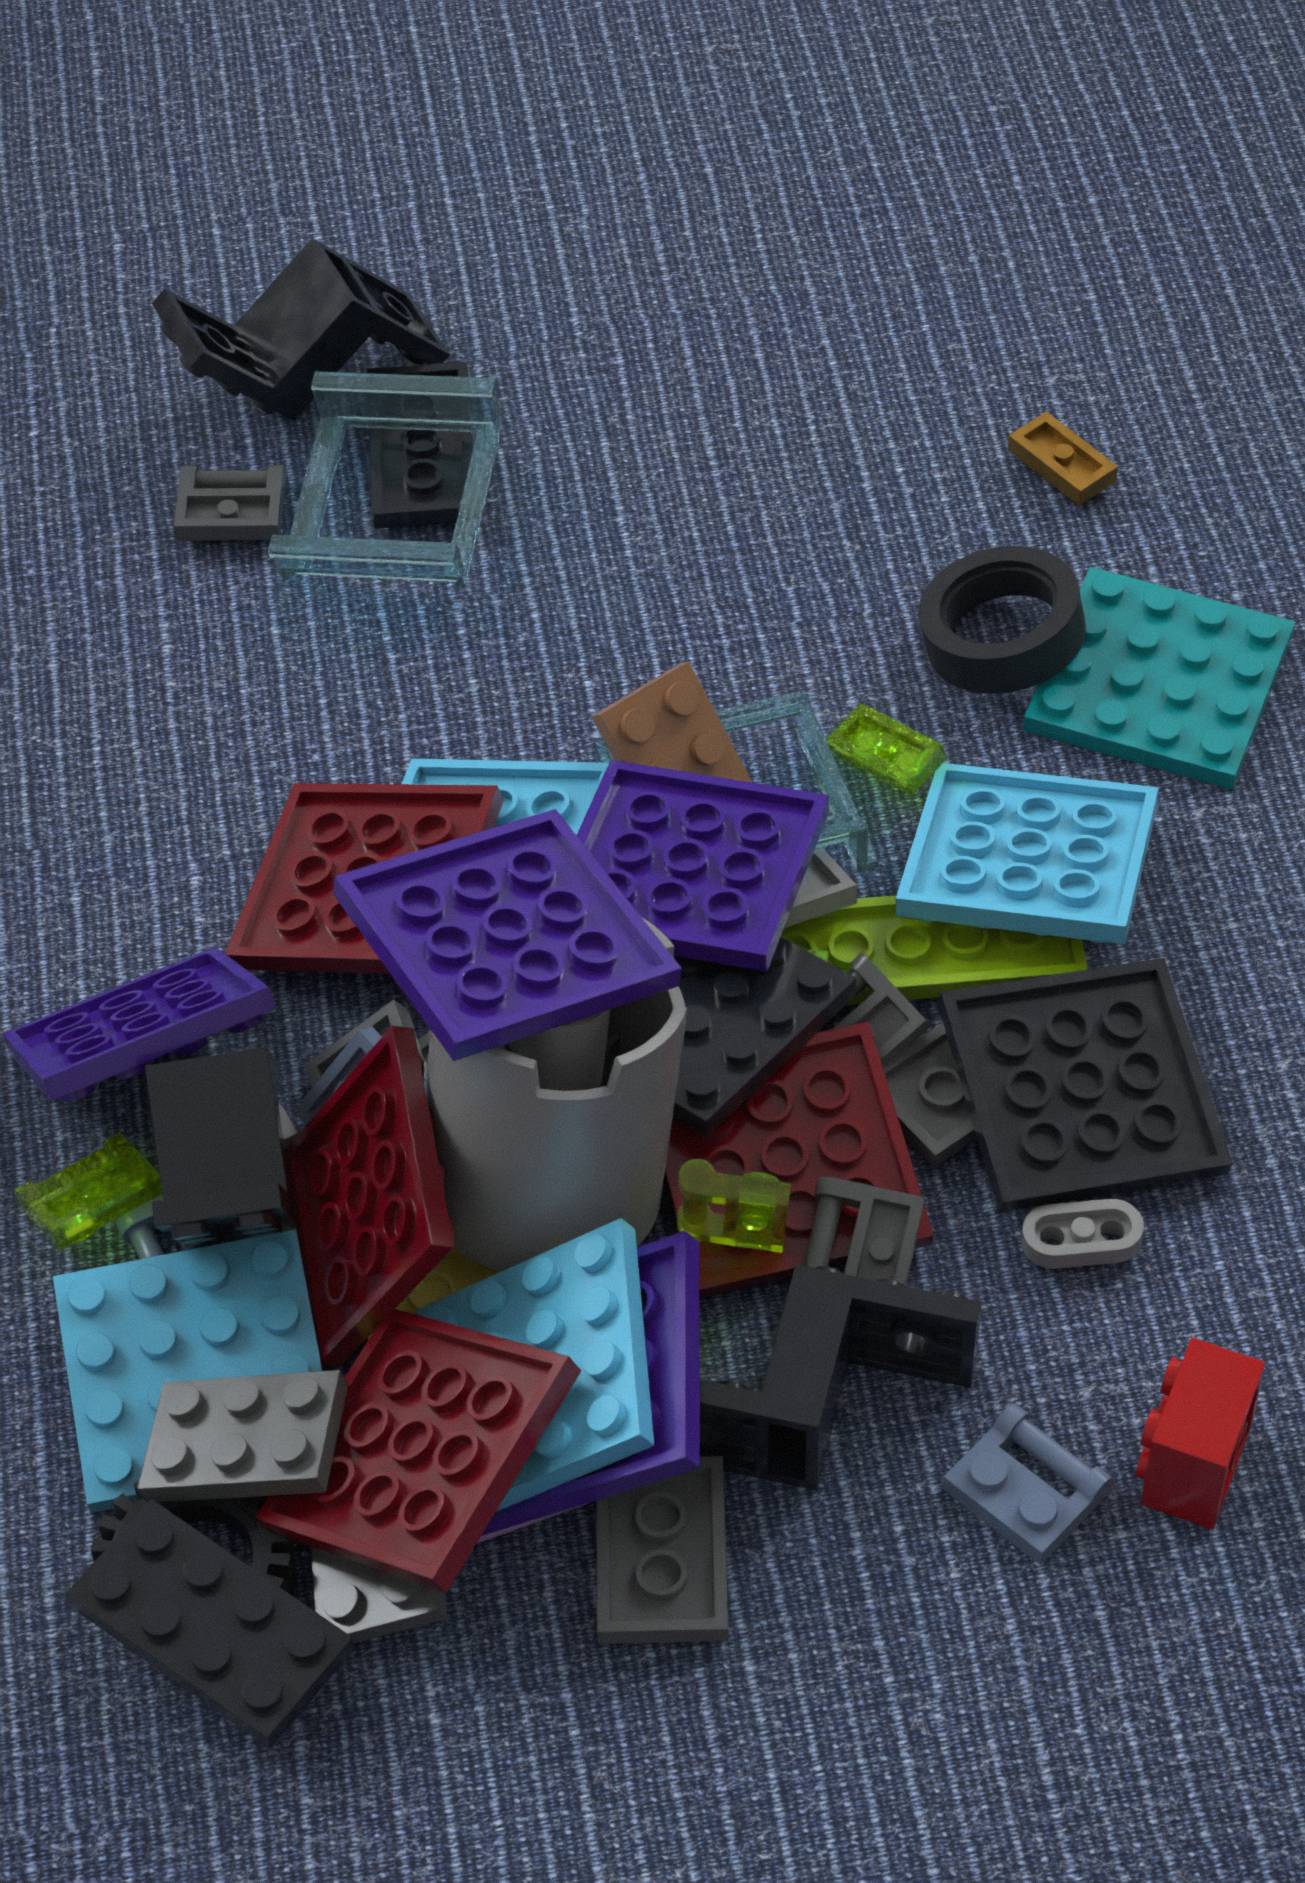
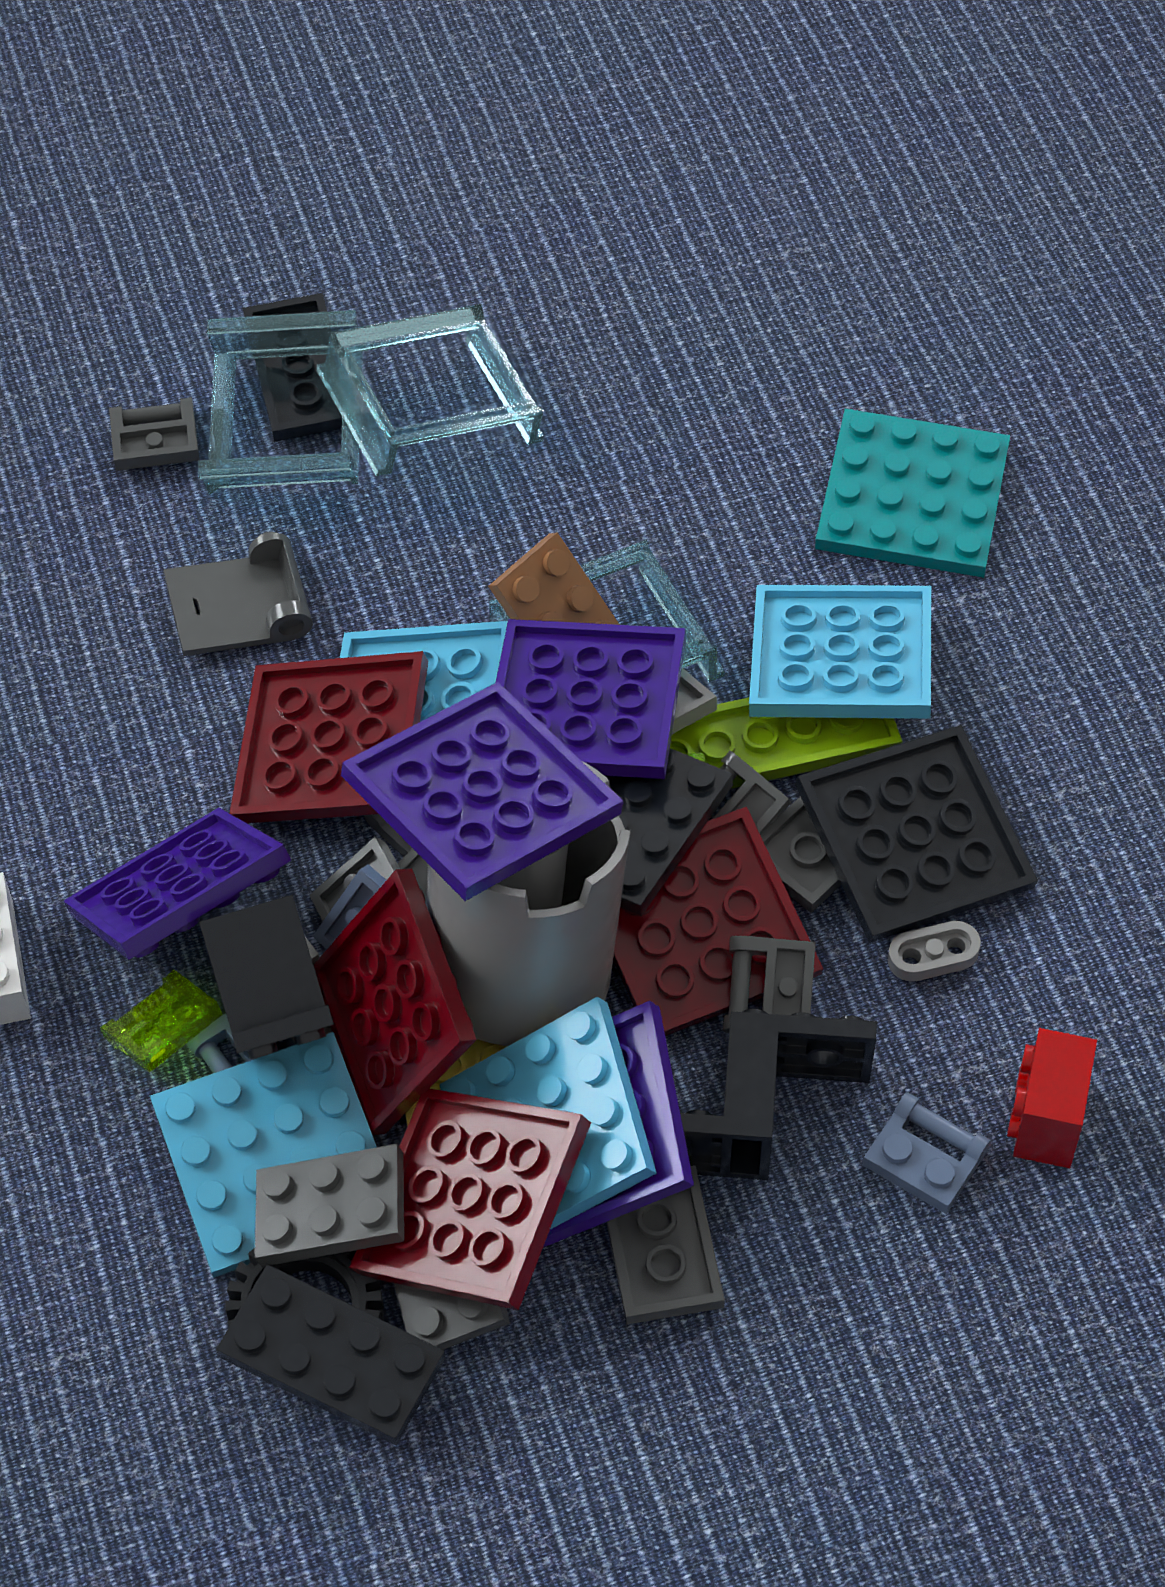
camera: 10 degrees left, 5 degrees up
(294, 706) = (240, 599): none -> dark grey door
(300, 325) = (184, 283): black bracket -> none
(486, 506) = (368, 419): none -> clear light blue piece
(753, 1207) = (688, 971): clear neon green plate -> none
(886, 749) = (715, 578): clear neon green plate -> none
(1012, 663) = (794, 500): black tyre -> none
(1062, 458) = (807, 320): pearl gold plate -> none

